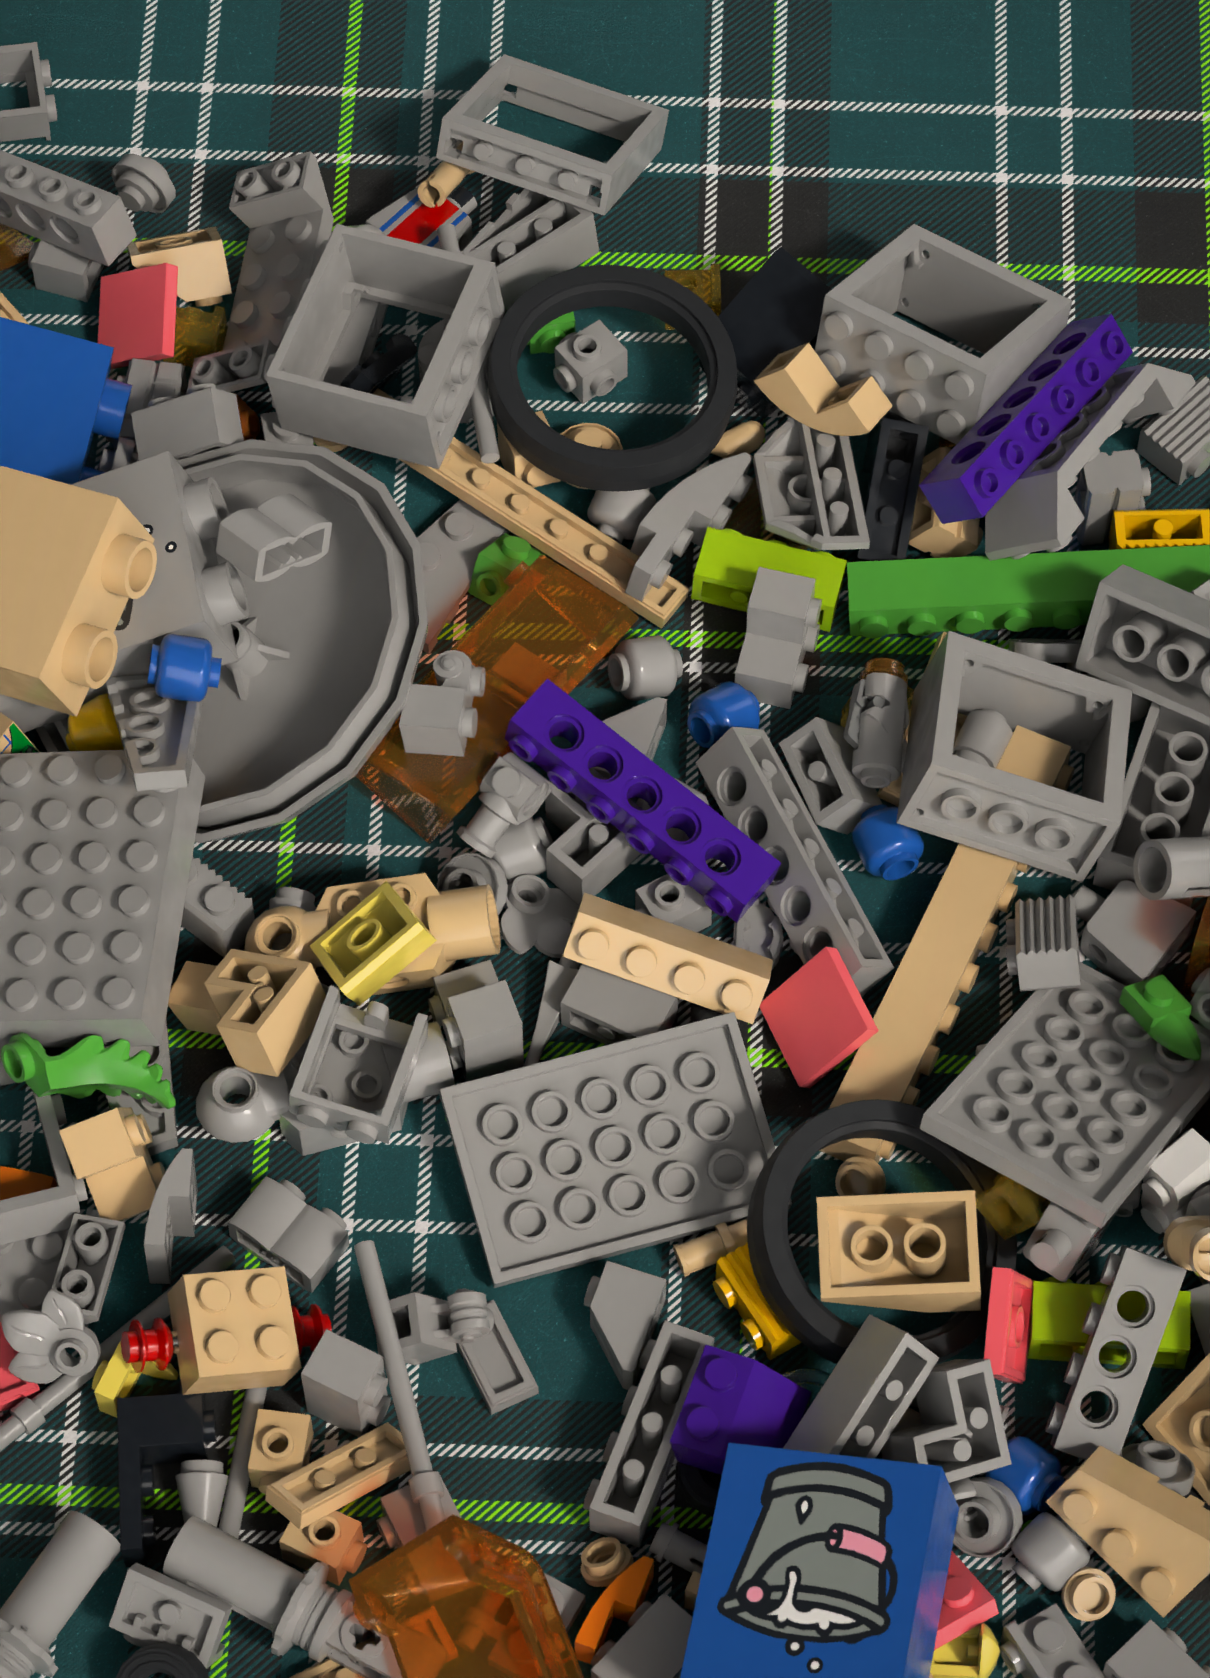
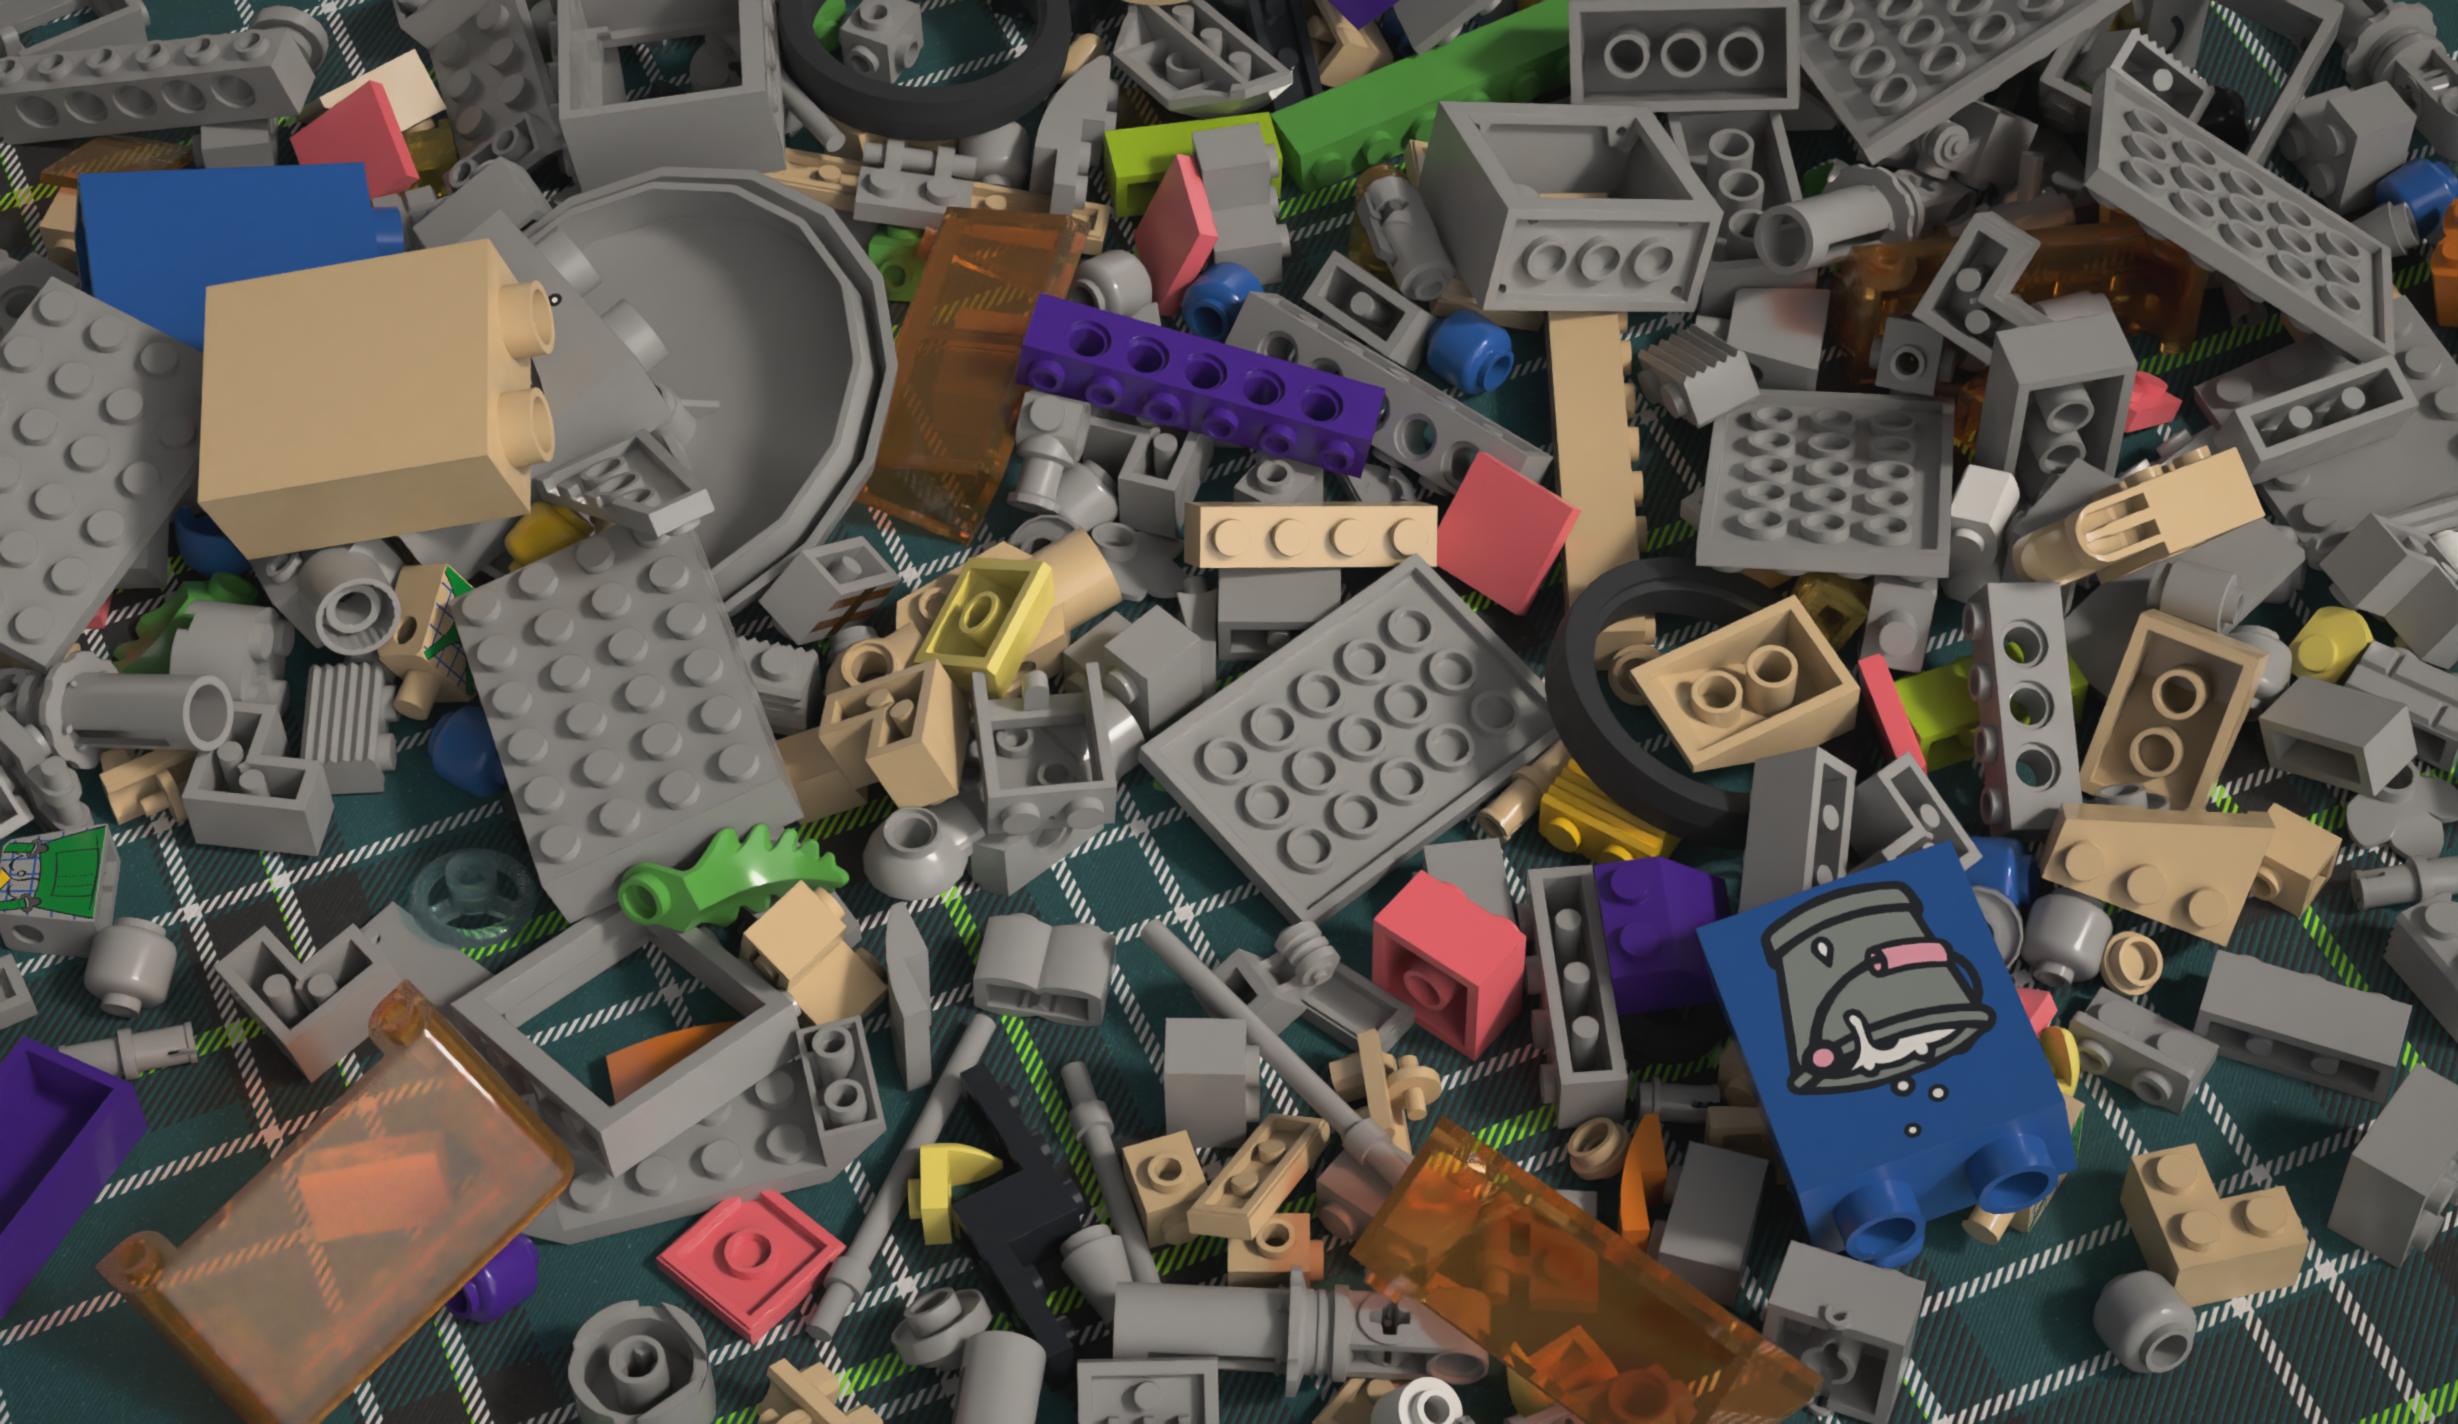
camera: 25 degrees left, 10 degrees down
(44, 1335) = (830, 1173): light grey plate -> none
(66, 1486) = (939, 1327): none -> light grey plate
(183, 668) = (631, 416): blue head -> none
(228, 1332) = (1045, 1076): tan brick -> none
(273, 537) = (661, 259): light grey brick -> none
(289, 852) = (829, 590): none -> light grey brick
(442, 716) = (932, 375): light grey brick -> none
(478, 1448) = (1387, 1089): none -> tan hips
(527, 527) = (911, 198): none -> light grey plate
(571, 1367) = (1450, 963): none -> coral brick
(714, 643) = (1176, 234): none -> coral tile
(1163, 1015) = (1856, 392): bright green plate -> none

